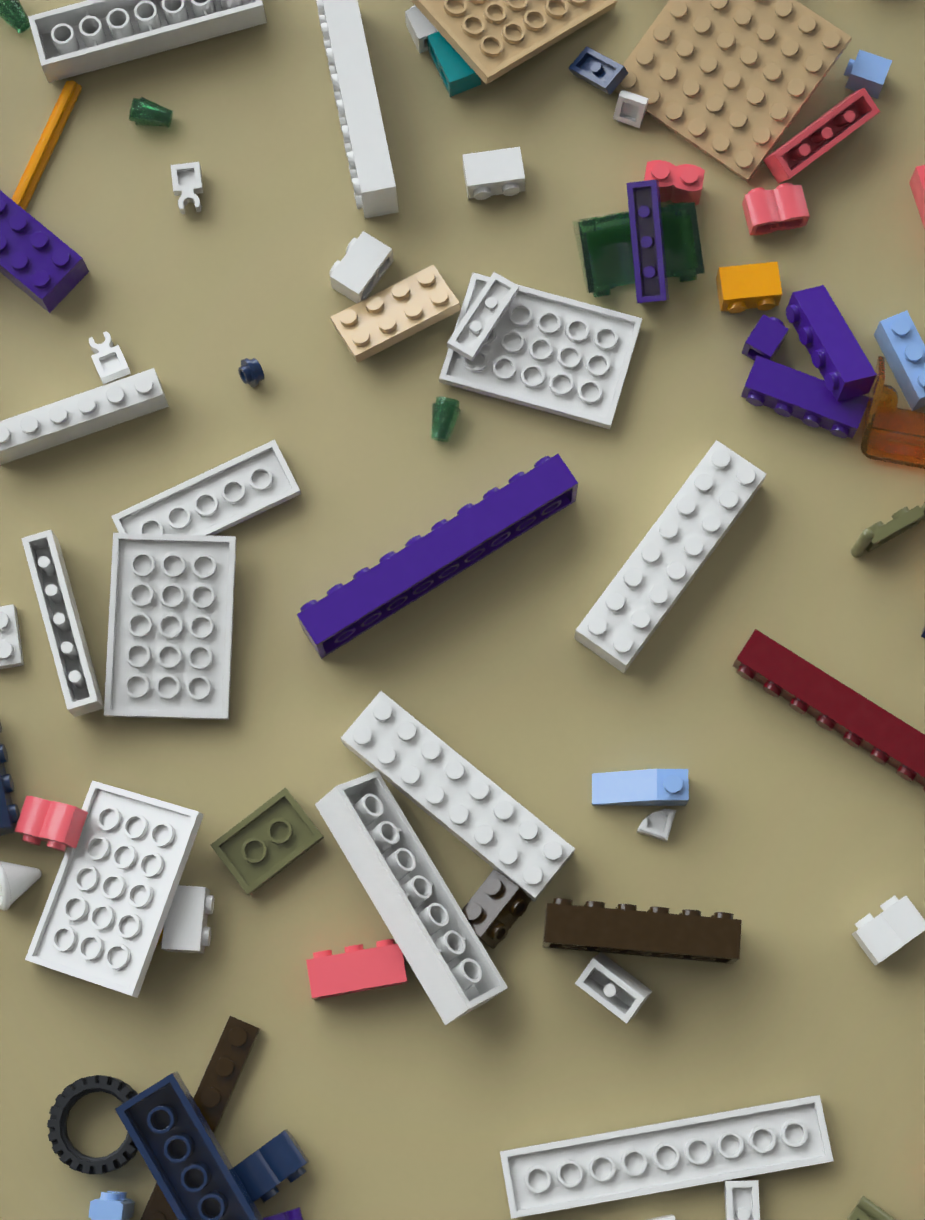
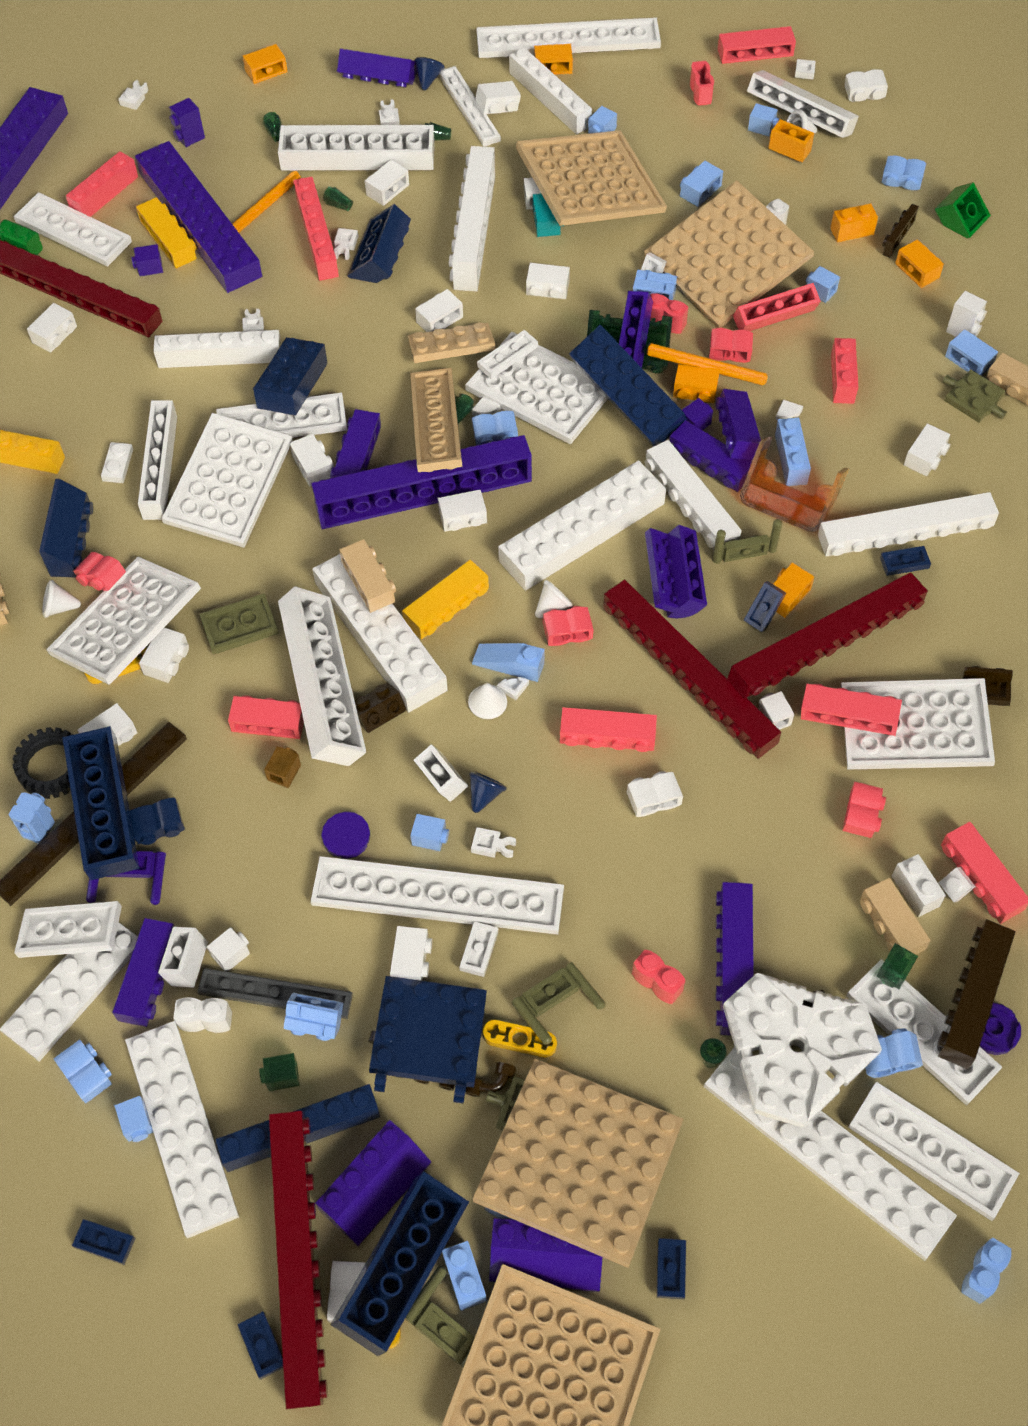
camera: 15 degrees right, 15 degrees down
(138, 174) = (316, 228): none -> coral brick
(156, 1054) = (117, 719): none -> white brick
(197, 437) = (290, 376): none -> dark blue brick
(210, 66) = (387, 182): none -> white brick
(239, 178) = (380, 246): none -> dark blue slope
(251, 372) = (342, 352): dark blue plate -> none
(271, 558) = (310, 459): none -> white brick
(327, 525) = (357, 443): none -> dark purple brick
(404, 1035) = (282, 766): none -> pearl gold brick
(424, 735) = (368, 575): none -> tan brick
(427, 459) = (435, 420): none -> tan plate
(476, 403) = (485, 406): none -> white tile
(503, 437) = (494, 427): none -> light blue brick
(503, 580) = (462, 510): none -> white brick
(519, 1106) = (346, 835): none -> dark purple tile
(528, 723) = (446, 599): none -> yellow brick
(598, 70) = (639, 240): dark blue plate -> none
(626, 1073) = (429, 832): none -> light blue brick
(632, 856) = (487, 701): none -> white hat
(642, 932) = (473, 742): dark brown brick -> none
(643, 141) = (655, 283): none -> light blue brick
(667, 329) = (627, 386): none -> dark blue brick
(668, 683) = (551, 599): none -> white hat
(675, 989) = (483, 790): none -> dark blue hat
(701, 715) = (567, 626): none -> coral brick
(703, 1063) = (488, 842): none -> white plate
(756, 255) = (698, 361): none -> light orange axle
(798, 468) = (690, 493): none -> white brick
(802, 854) = (608, 729): none -> coral brick
(816, 593) = (676, 571): none -> dark purple brick
(881, 292) = (788, 410): none -> white tile

